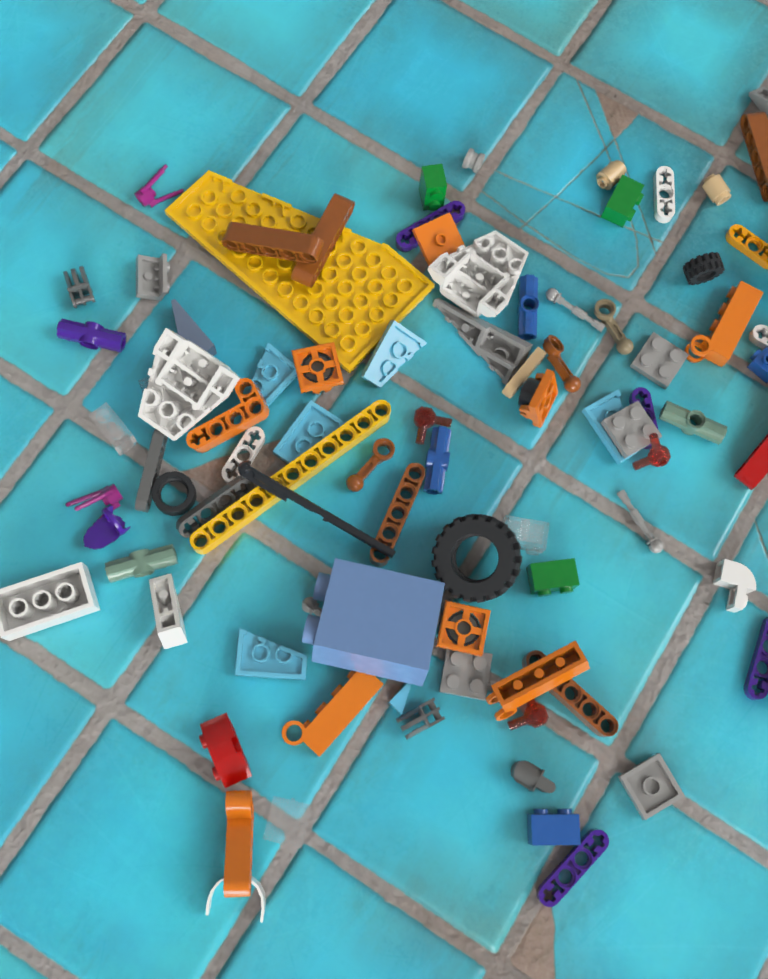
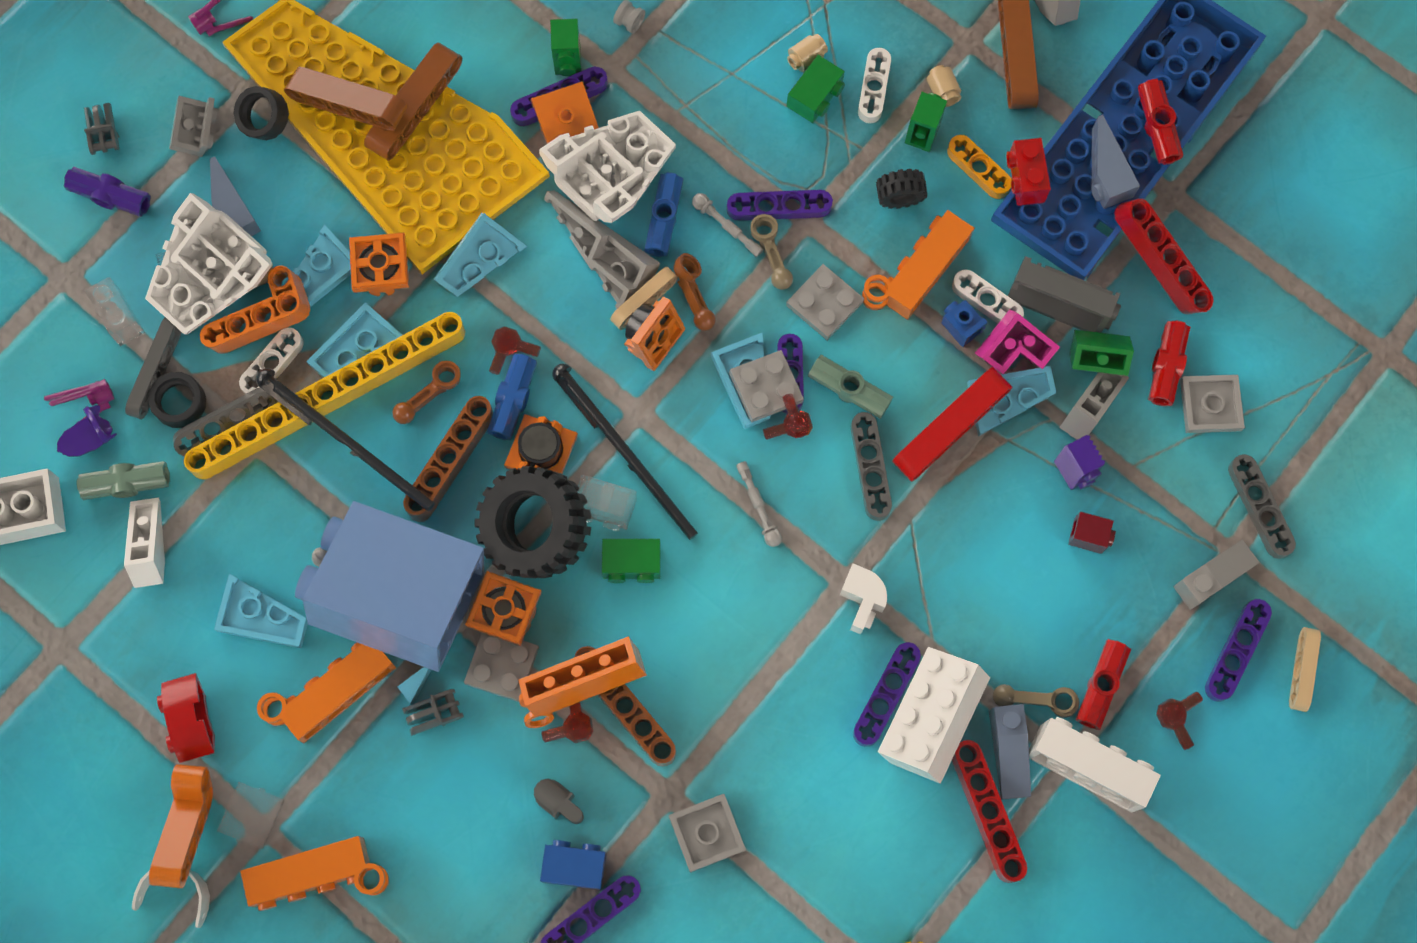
camera: 15 degrees right, 0 degrees up
(190, 256) = (244, 106): none -> black tyre
(346, 862) = (310, 871): none -> orange hinge
(466, 496) = (540, 445): none -> piece
(503, 469) = (596, 419): none -> black bar
(610, 288) = (779, 199): none -> dark purple beam
(712, 216) = (925, 121): none -> green brick
(721, 481) = (871, 466): none -> dark grey beam

